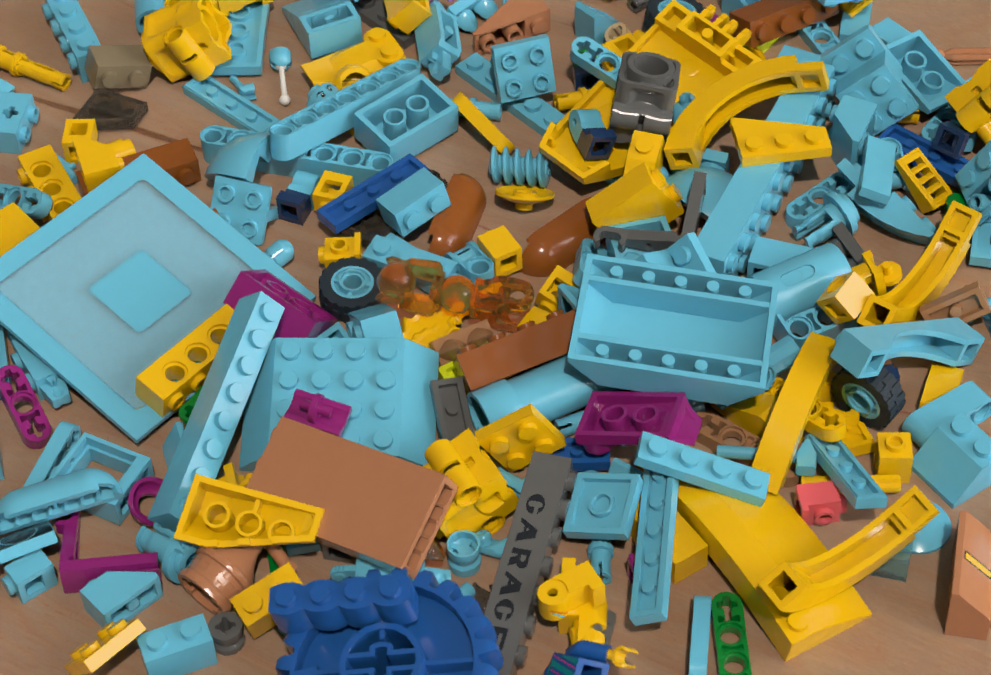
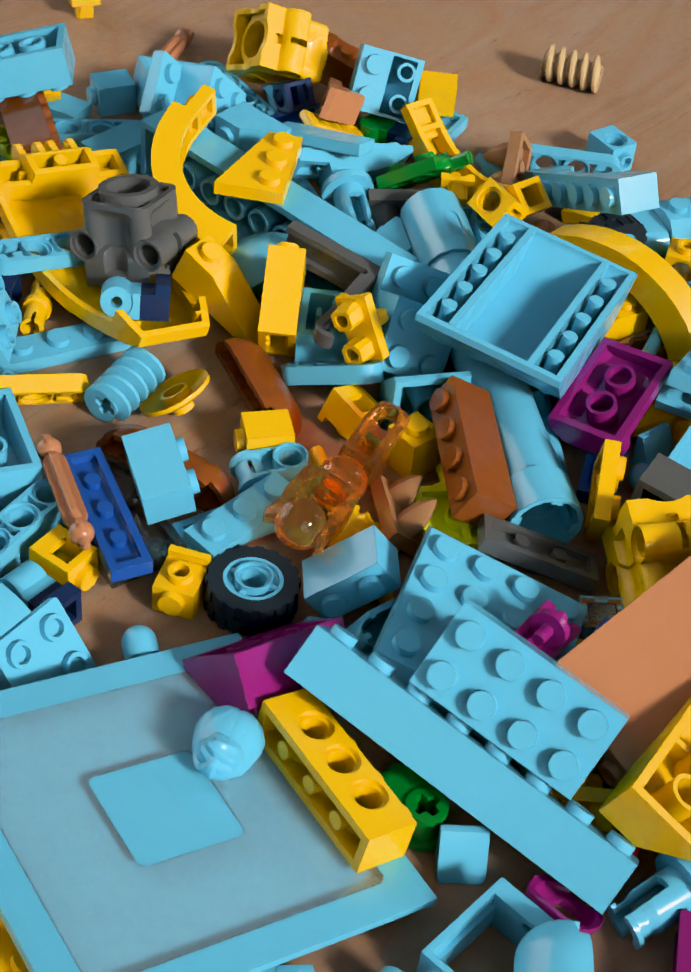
camera: 80 degrees left, 5 degrees down
(195, 302) = (226, 742): none -> medium azure hair
(252, 409) = (519, 698): none -> medium azure brick
(373, 164) = (65, 491): none -> nougat wheel
(611, 236) = (362, 325): none -> yellow hips
(894, 250) = (425, 169): none -> green plate
(944, 163) = (340, 103): none -> nougat slope

